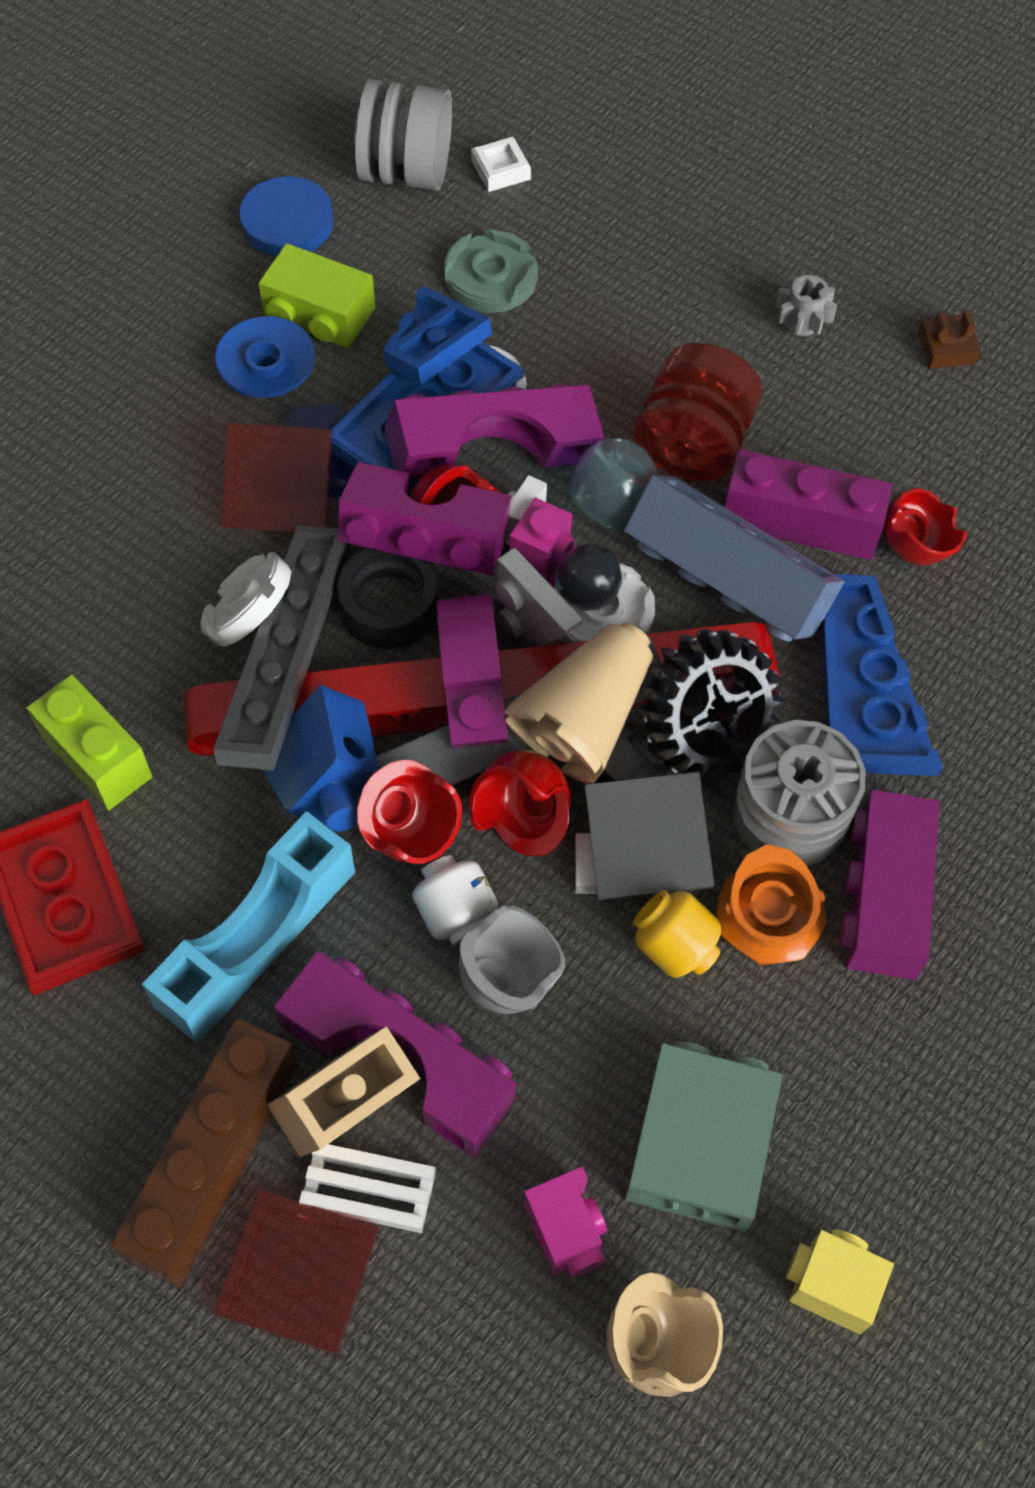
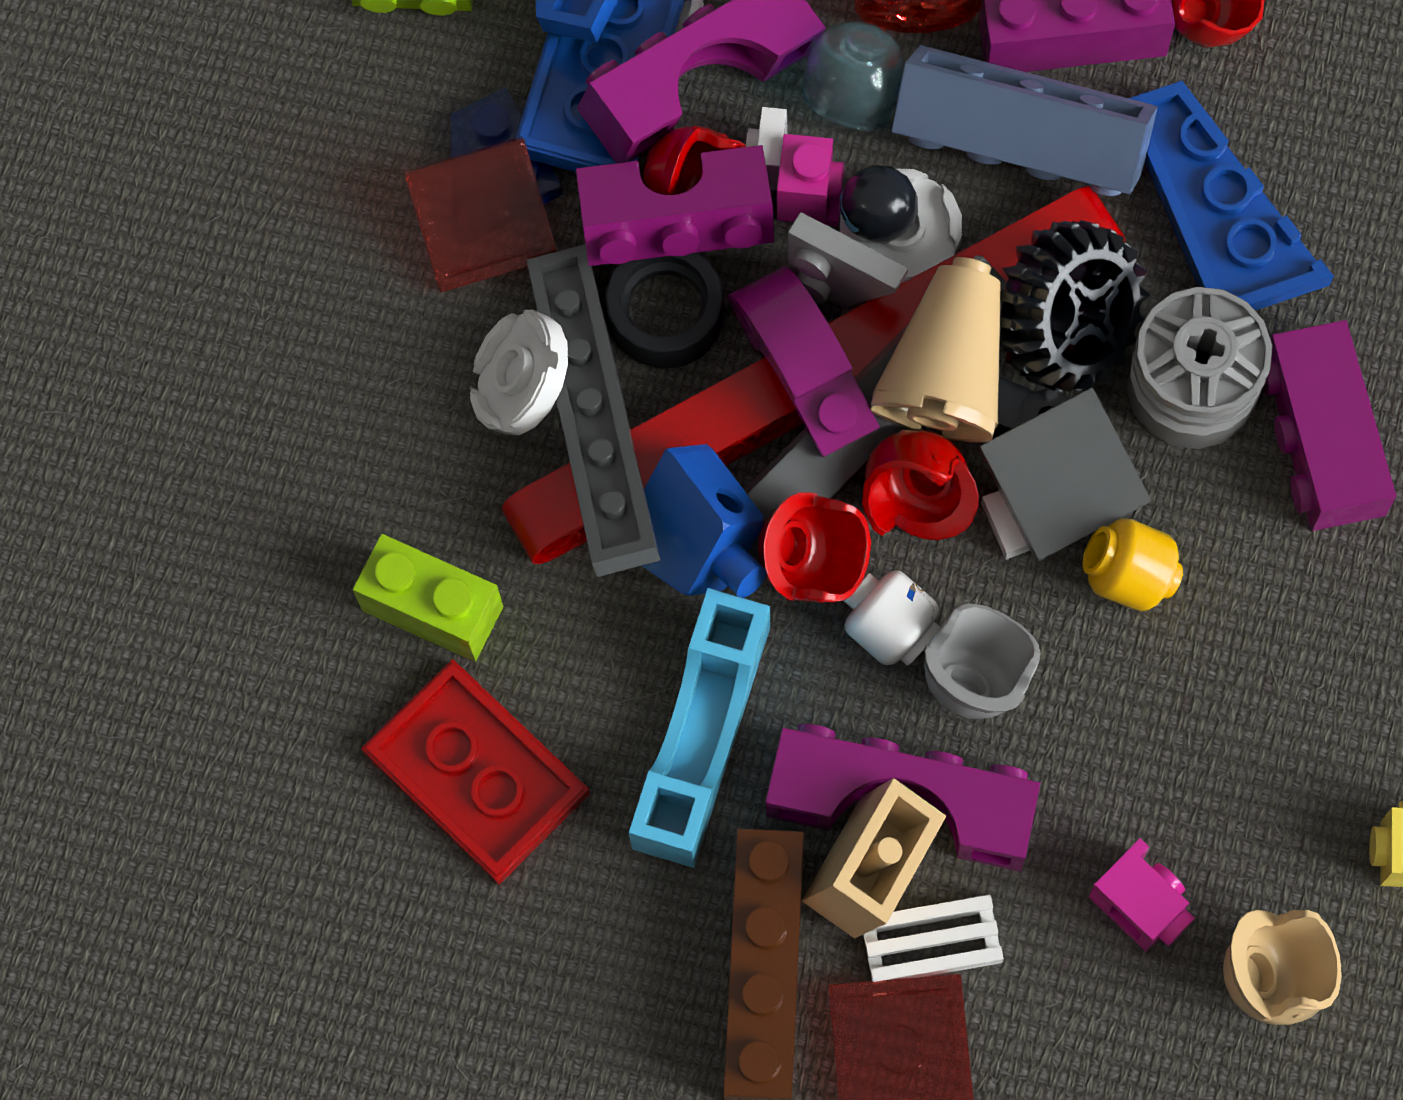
camera: 15 degrees left, 10 degrees up
(265, 357) = (387, 41): blue dish -> none
(705, 1136) = (1241, 758): sand green brick -> none
(771, 907) = (1214, 498): orange hat -> none

